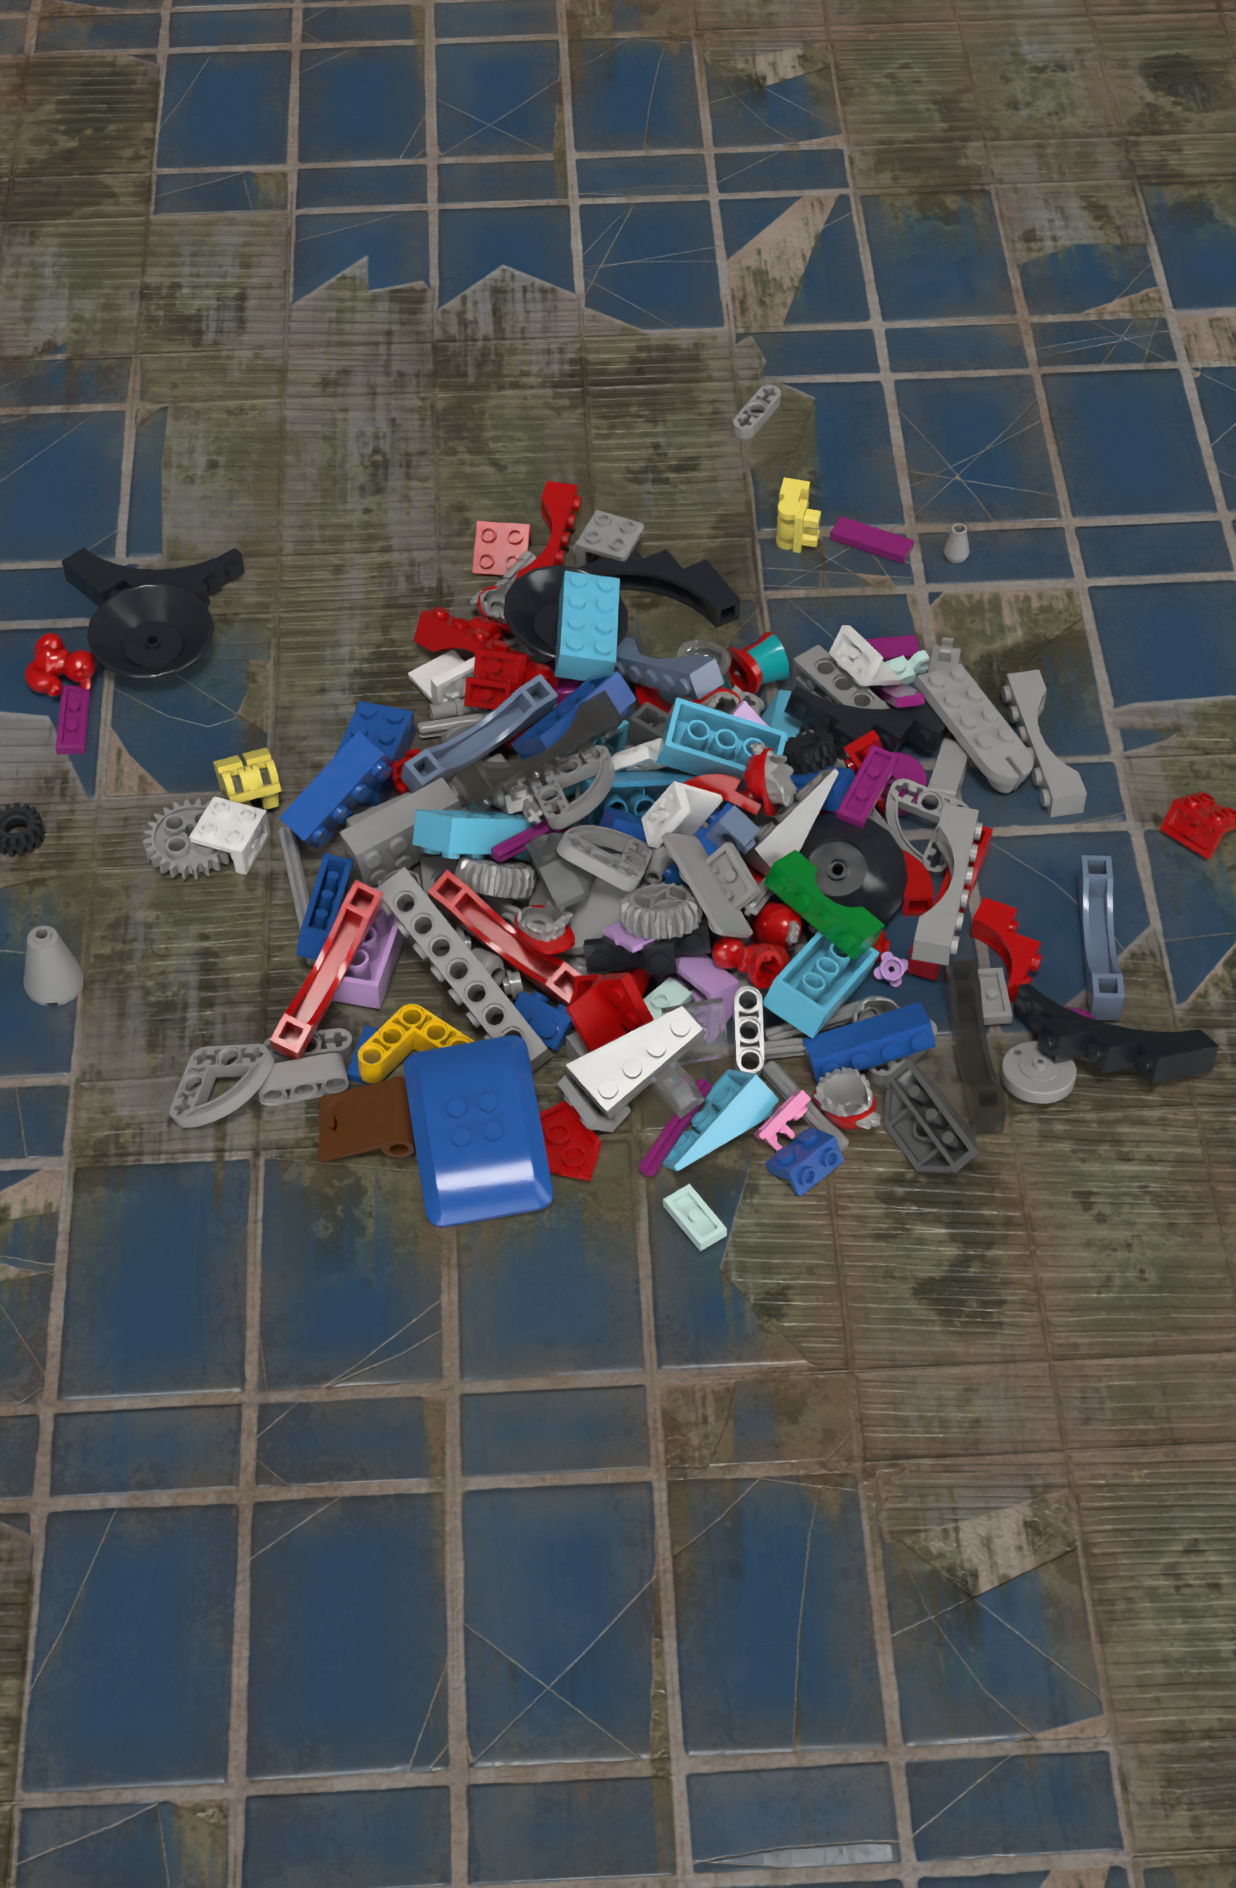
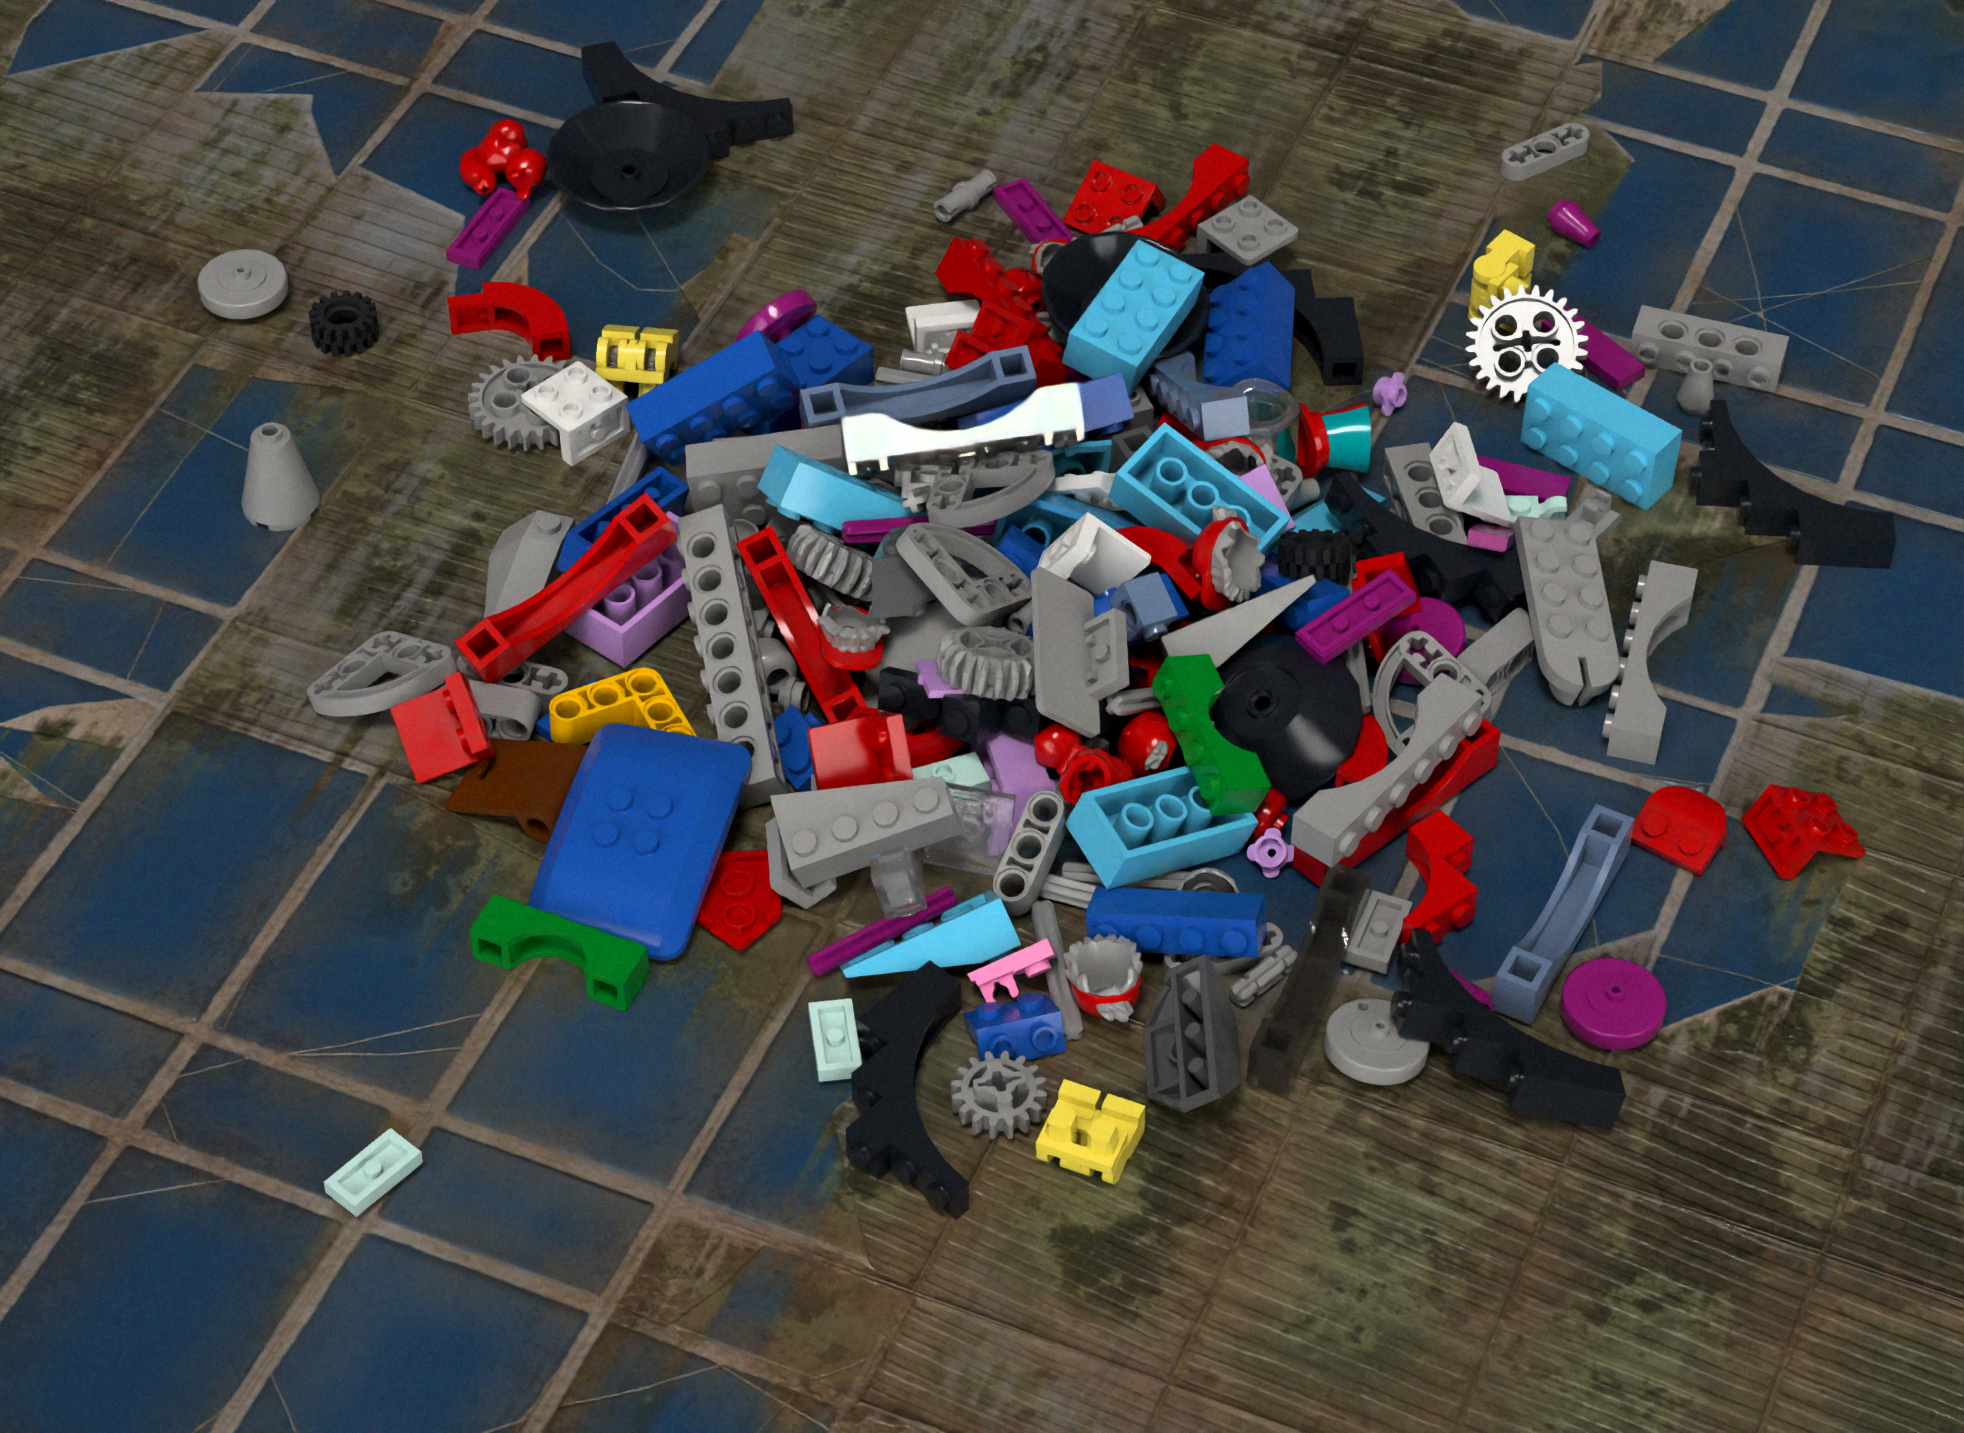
camera: 25 degrees right, 5 degrees down
(141, 773) = (515, 310): none -> red arch
(266, 966) = (525, 560): none -> light grey wedge
(291, 1105) = (442, 730): none -> red bracket
(335, 719) = (781, 316): none -> magenta wheel
(396, 576) = (965, 195): none -> light grey pin
(433, 1231) = (515, 933): none -> green arch
(445, 1447) = (373, 1172): none -> light aqua plate
(450, 575) = (1030, 212): none -> magenta tile
(659, 610) = (1250, 329): none -> blue brick
(752, 1237) = (890, 1131): none -> black arch
(766, 617) = (1390, 393): none -> lavender plate
(808, 456) = (1572, 222): none -> magenta cone
(826, 1210) = (998, 1094): none -> light grey gear
(827, 532) = (1522, 313): none -> gear
(901, 1214) = (1090, 1134): none -> light yellow hips
(922, 599) = (1600, 436): none -> medium azure brick
(938, 512) = (1737, 352): none -> light grey brick
(938, 1055) = (1262, 976): none -> light grey axle
(1049, 608) = (1770, 506): none -> black arch
(1132, 848) = (1681, 827): none -> red slope
(1163, 985) = (1613, 1003): none -> magenta wheel

